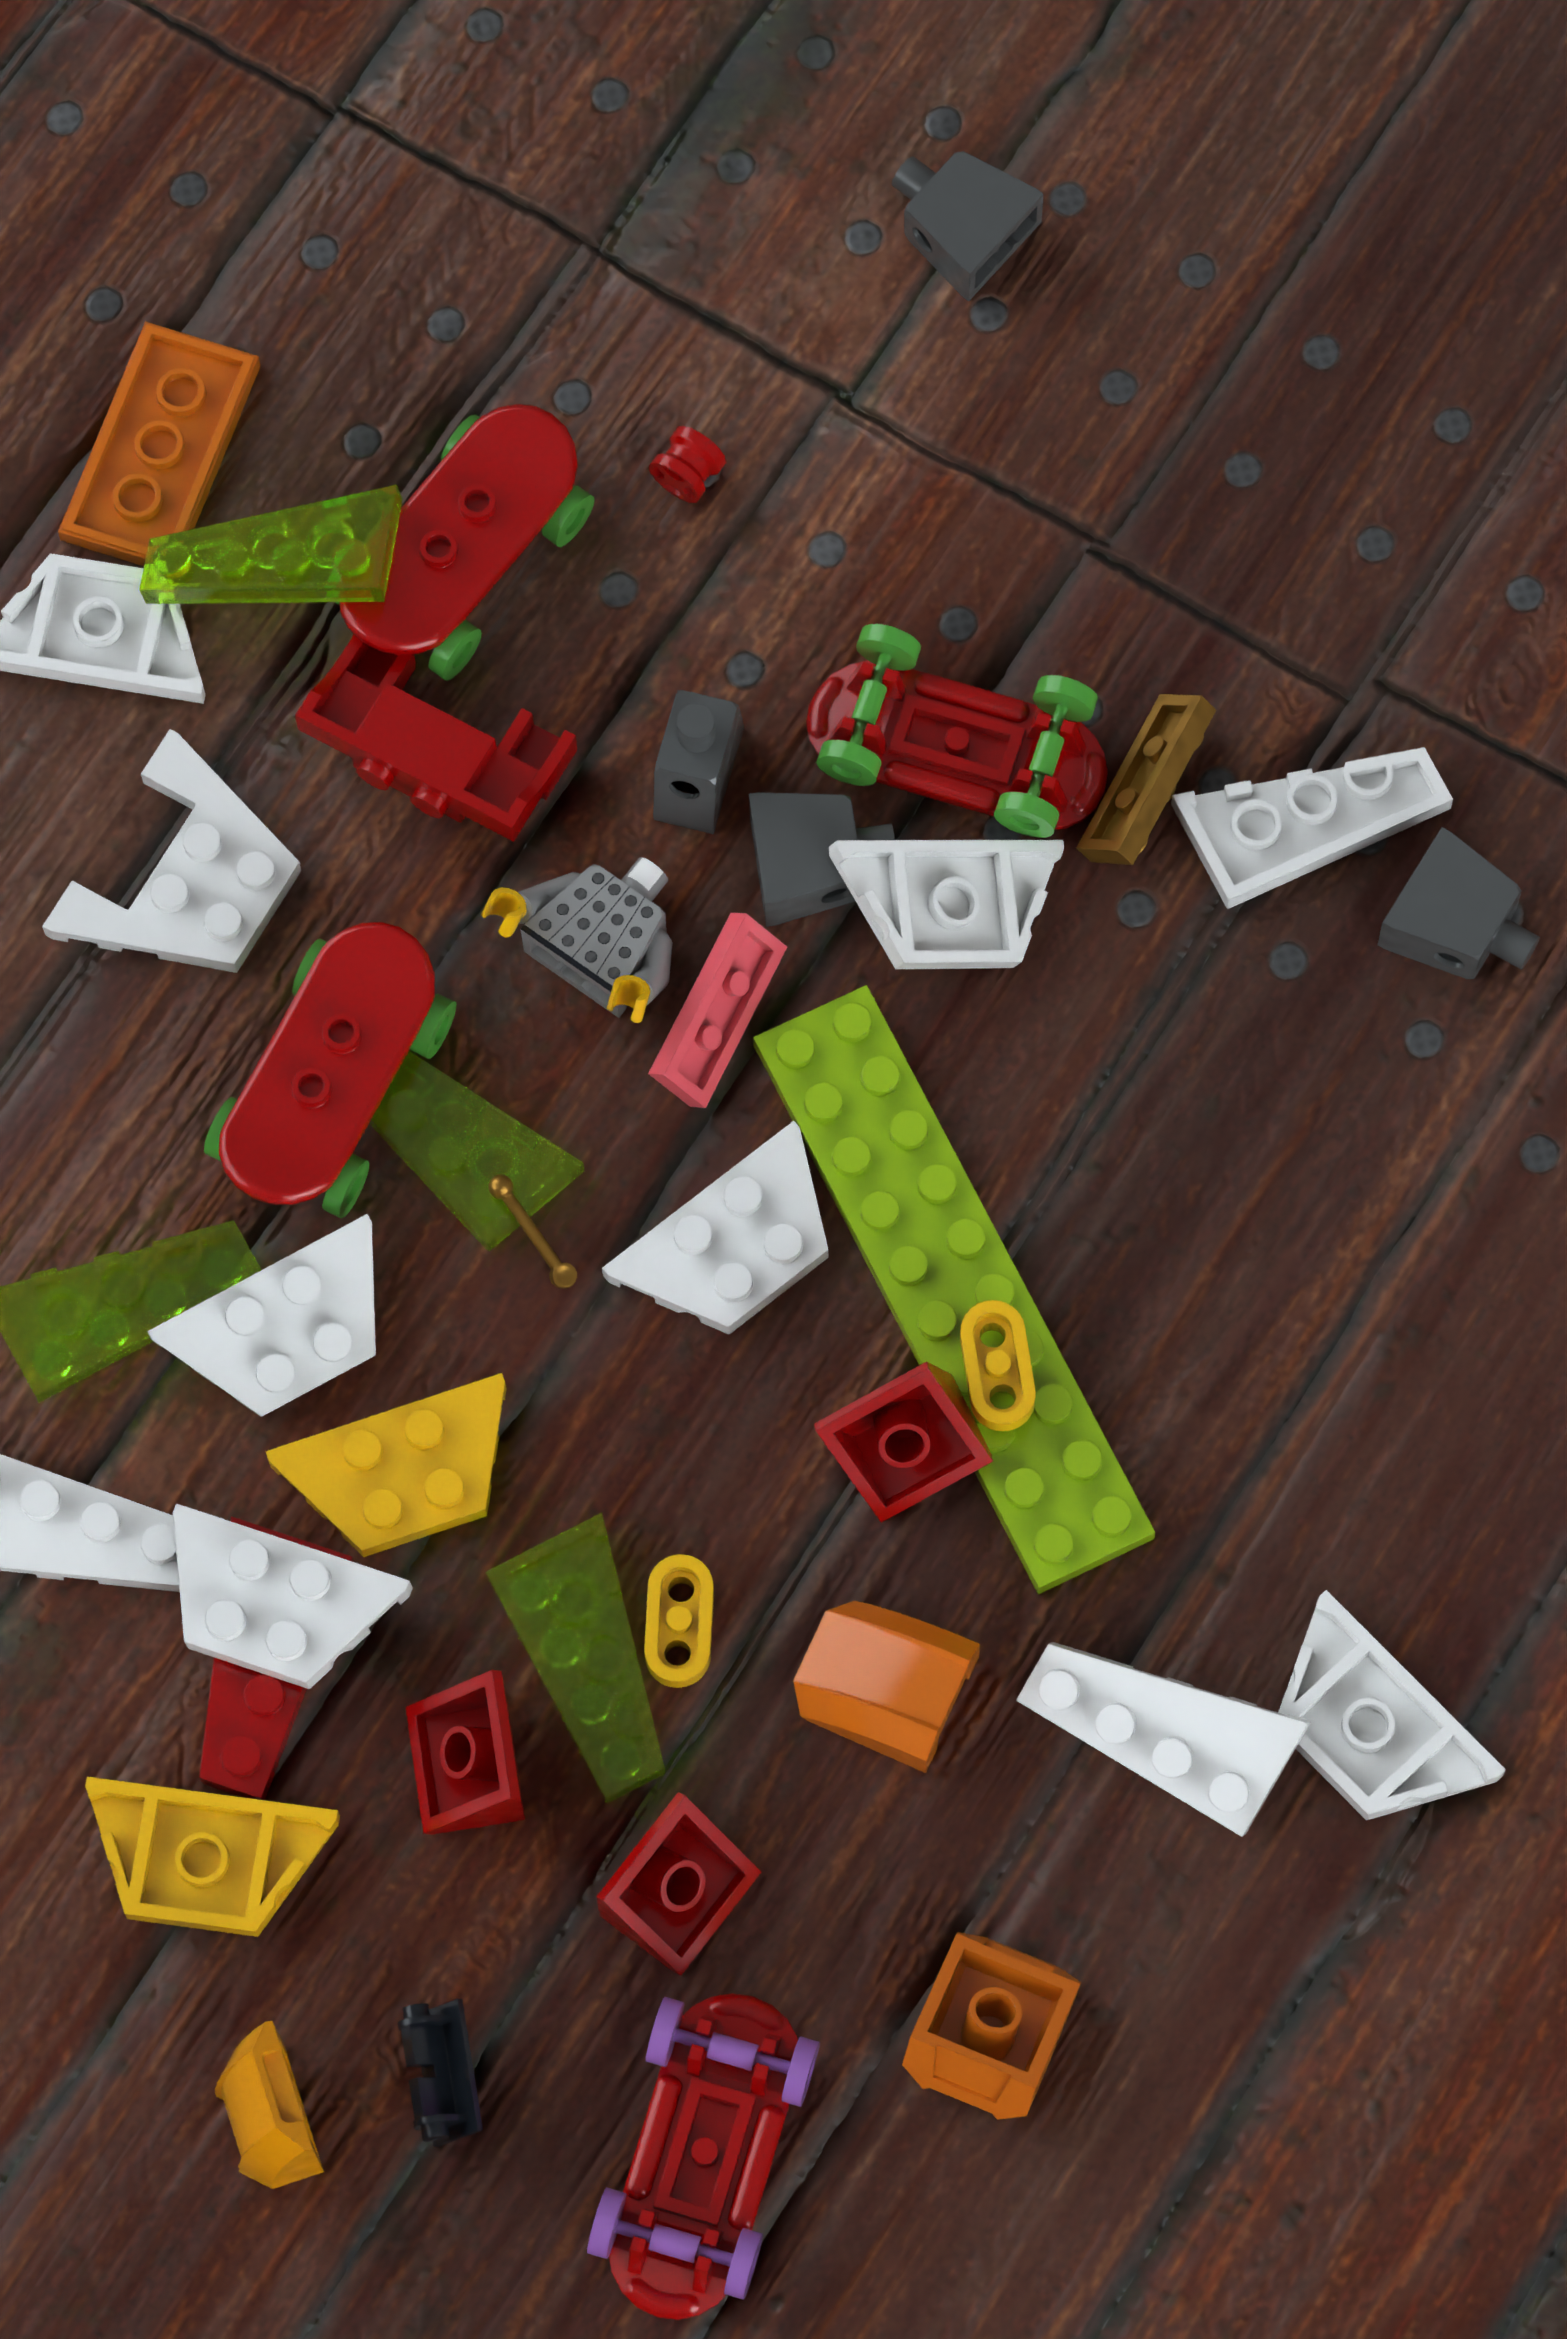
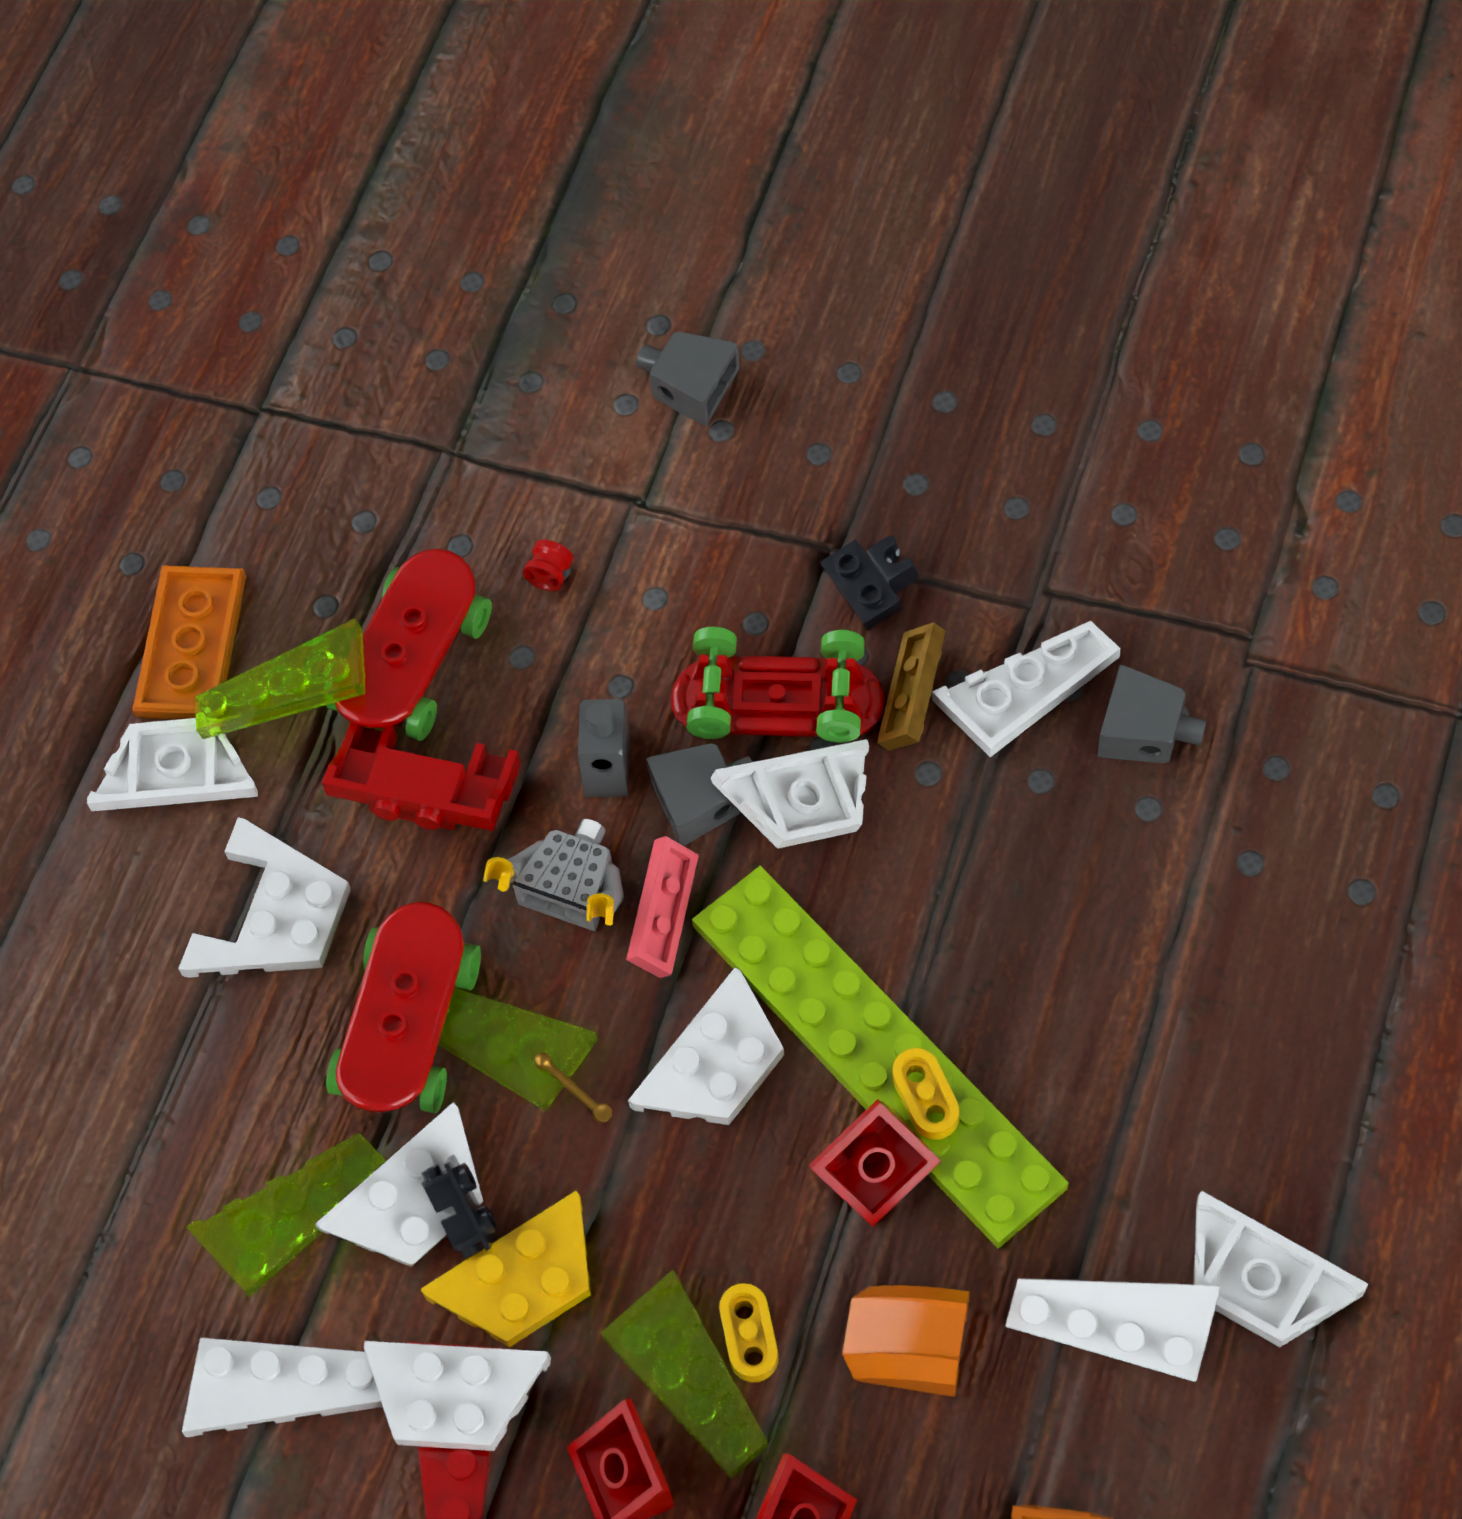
camera: 10 degrees left, 10 degrees down
(352, 1380) = (470, 1221): none -> black hinge
(1135, 601) = (870, 579): none -> black plate

